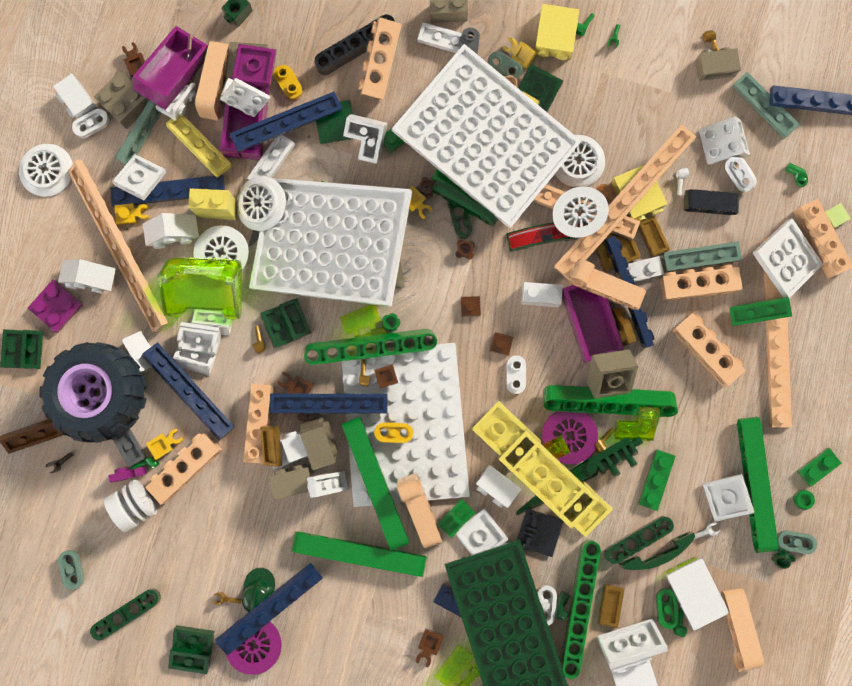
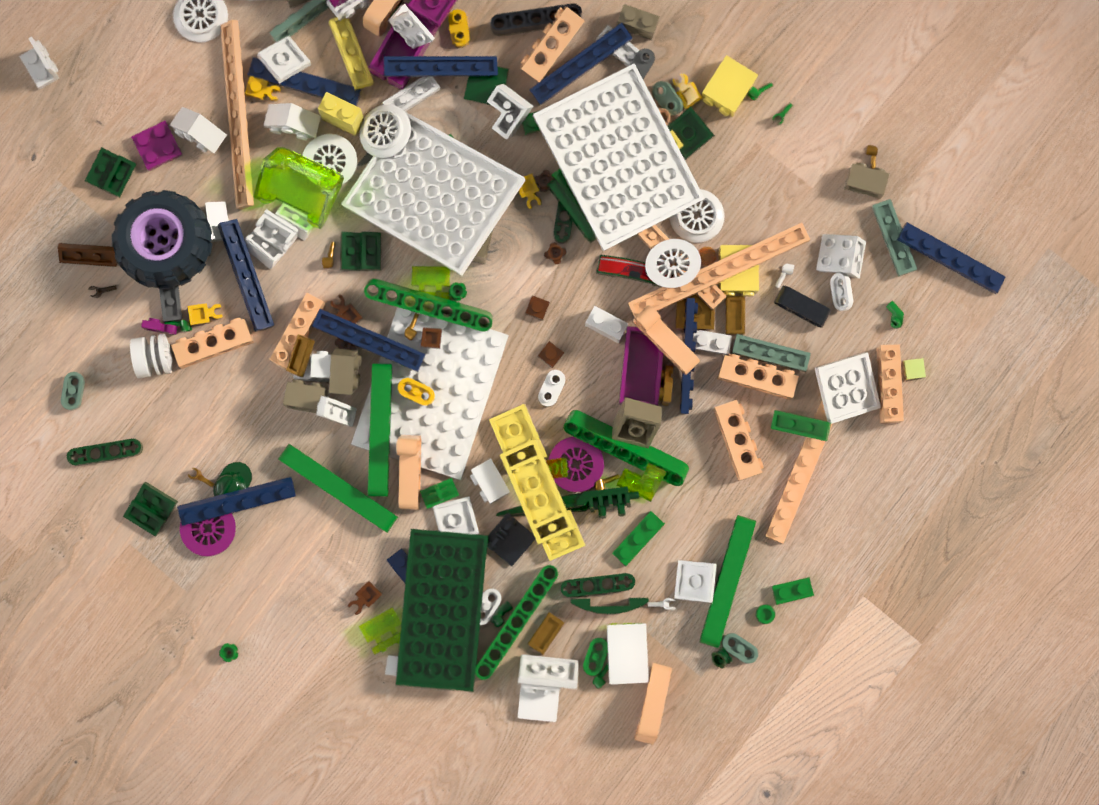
camera: 15 degrees right, 0 degrees up
(414, 67) = (581, 64): none -> dark blue plate

